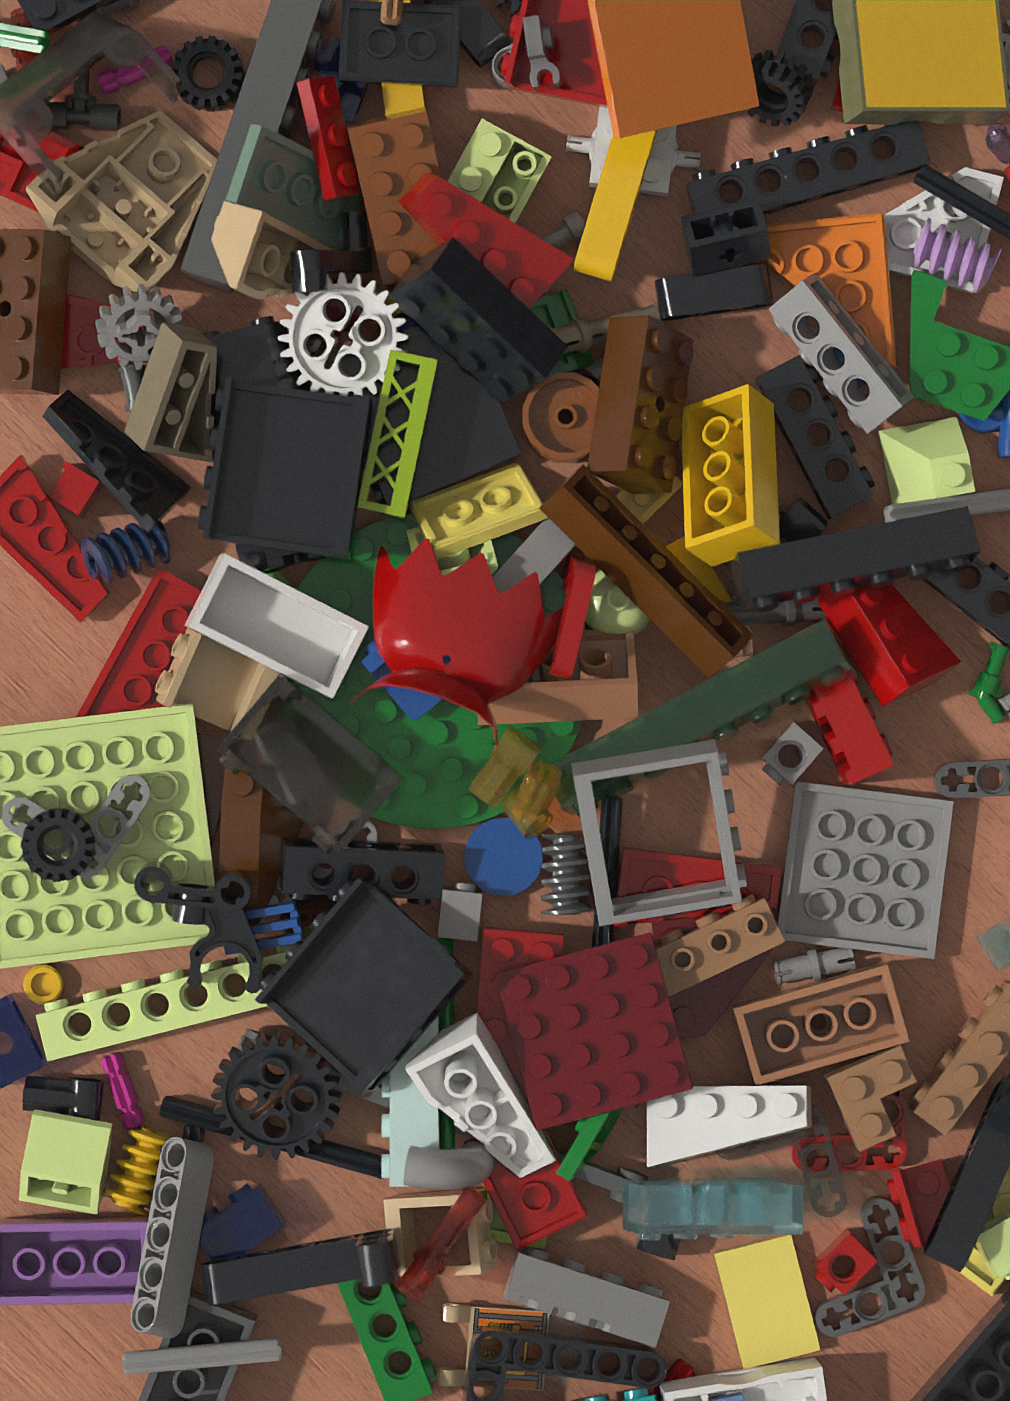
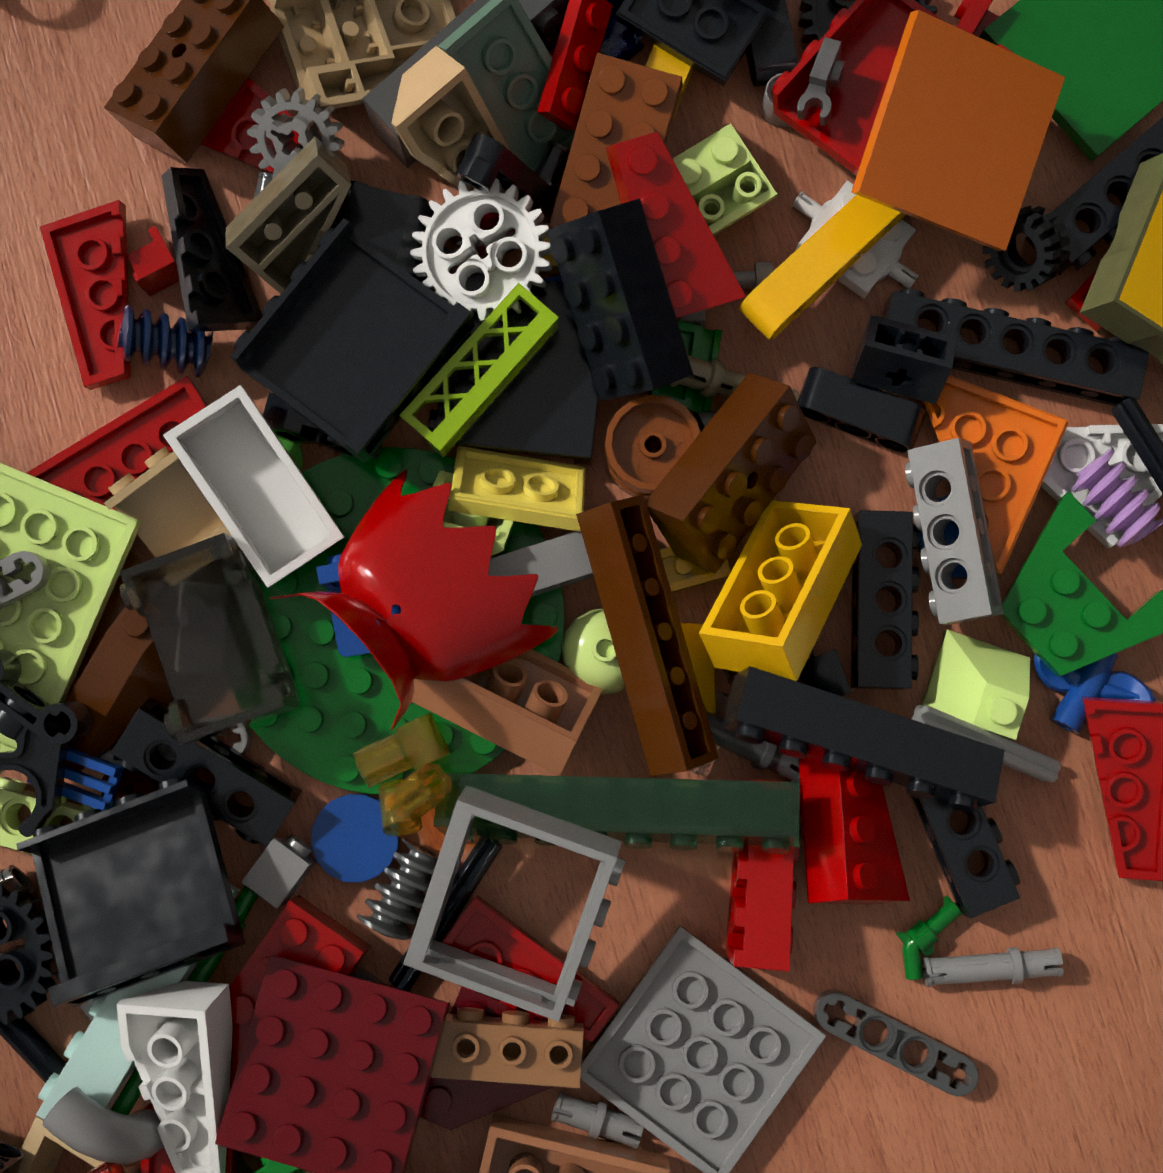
camera: 30 degrees right, 5 degrees down
(577, 585) = (548, 640): red beam -> none
(807, 748) = (709, 902): light grey brick -> none

